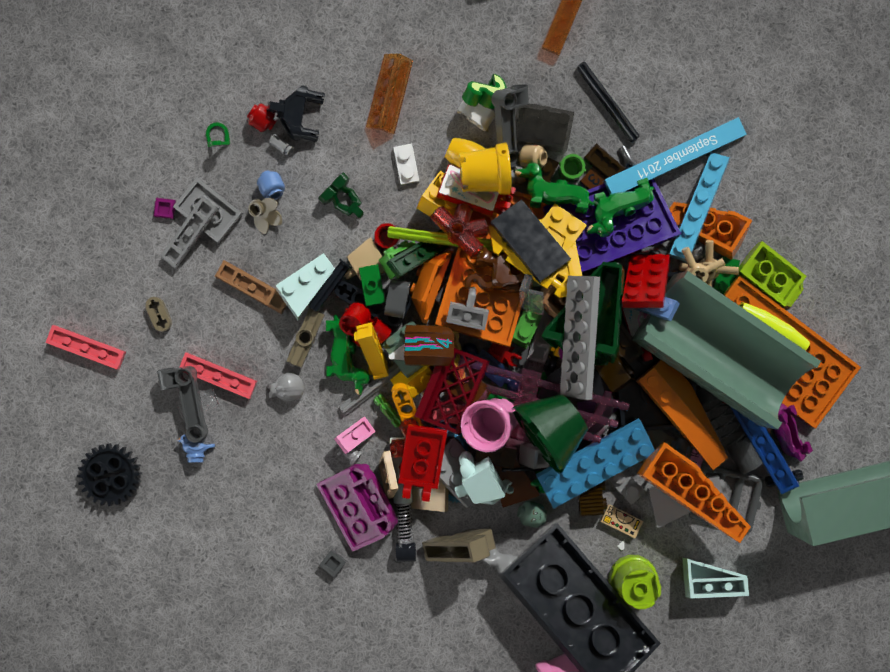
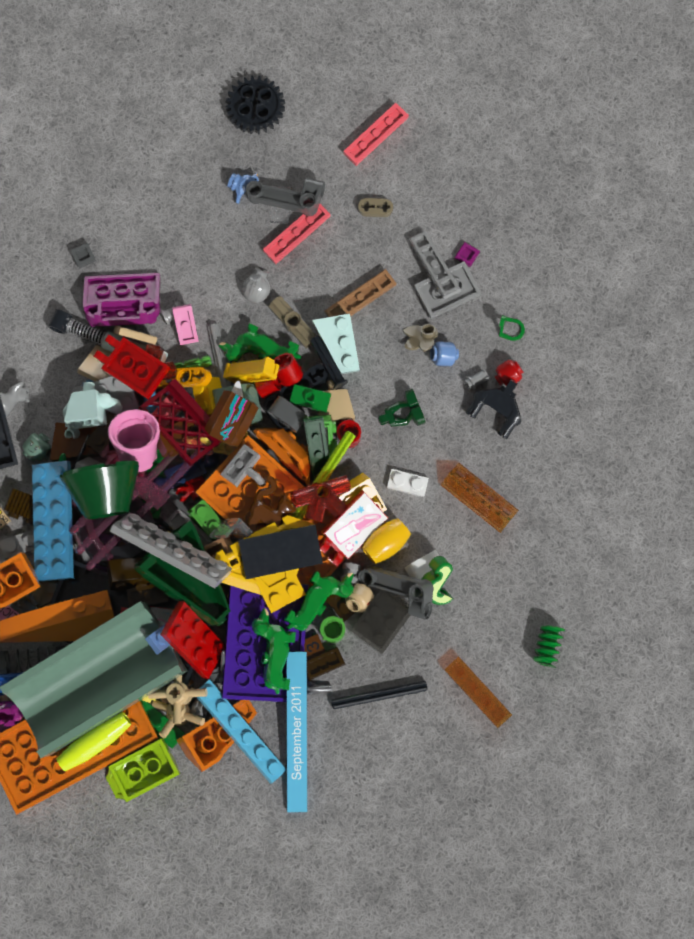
camera: 110 degrees right, 10 degrees down
(461, 547) = (39, 368): dark tan brick -> none
(486, 170) = (363, 542): yellow piece -> none

